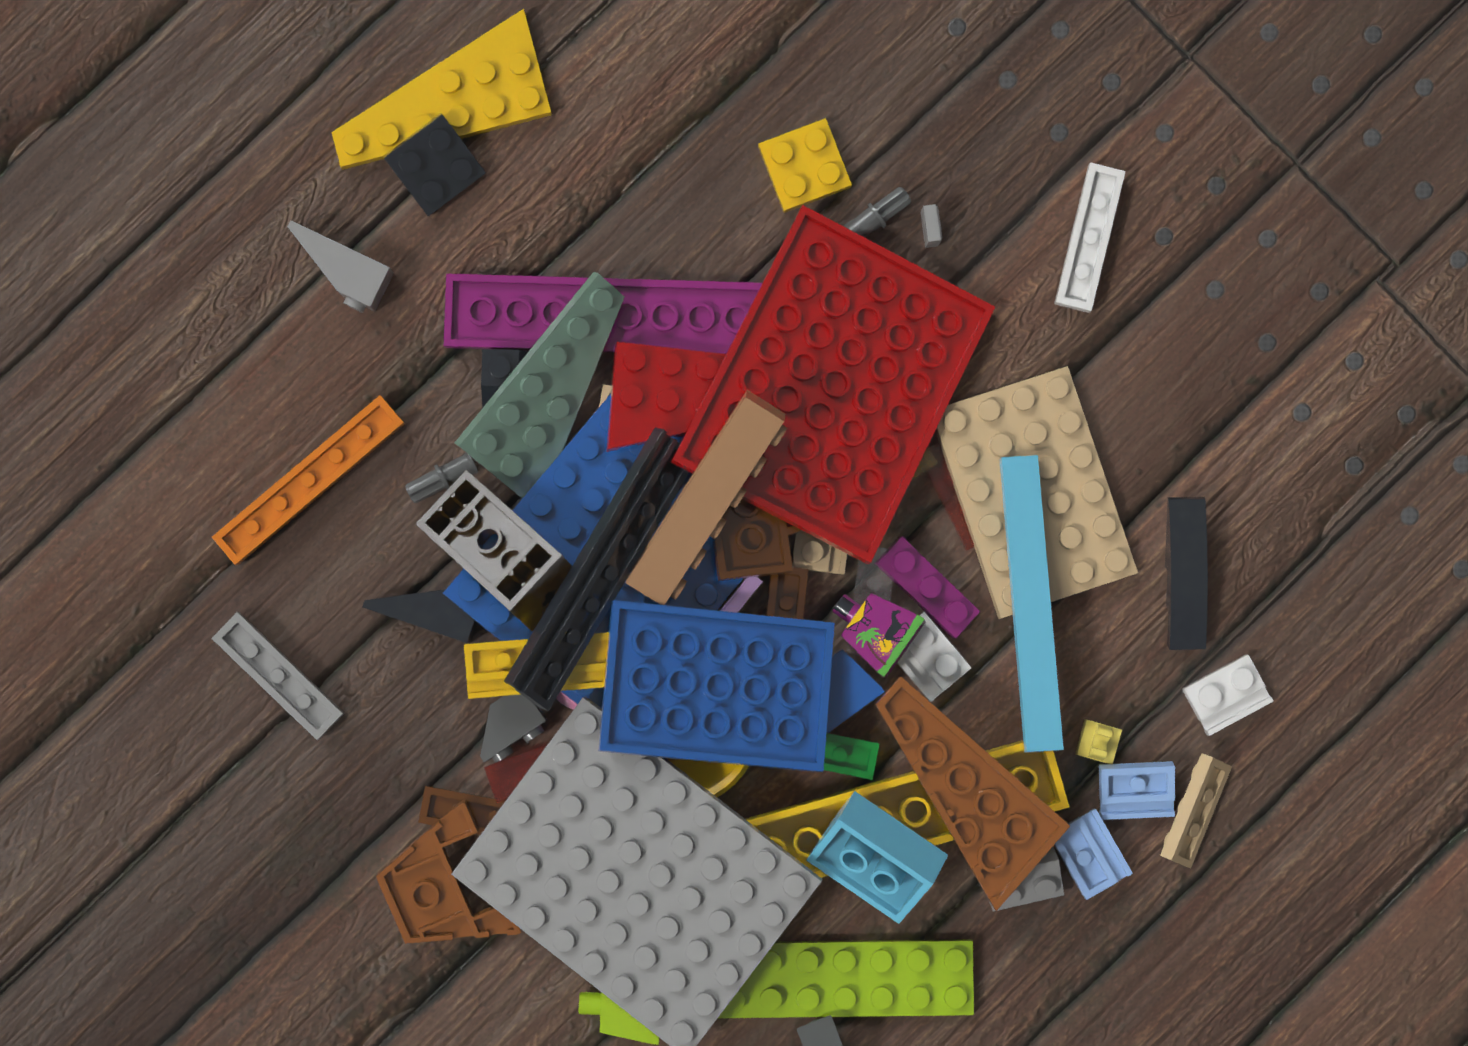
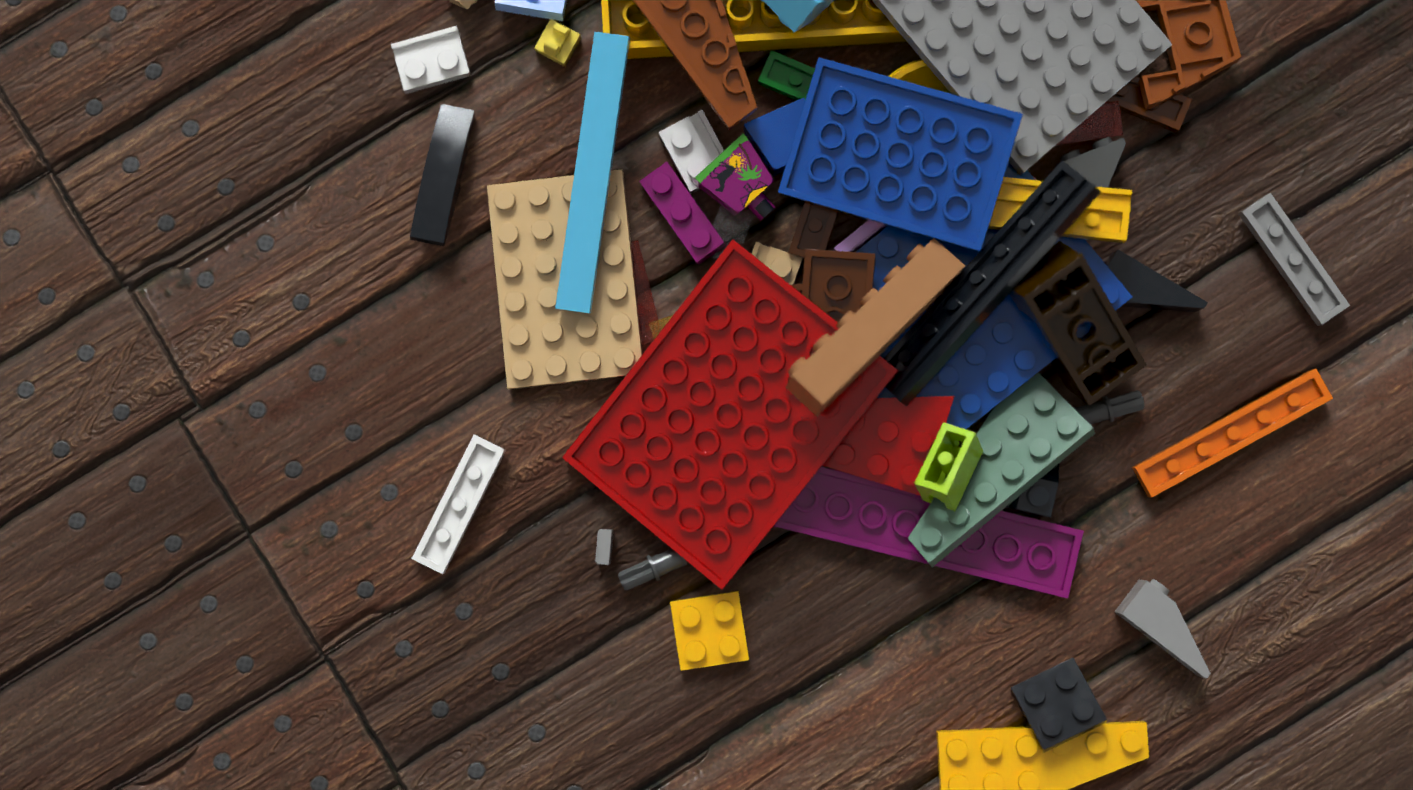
camera: 155 degrees left, 0 degrees up
(598, 375) = (949, 466): none -> lime brick

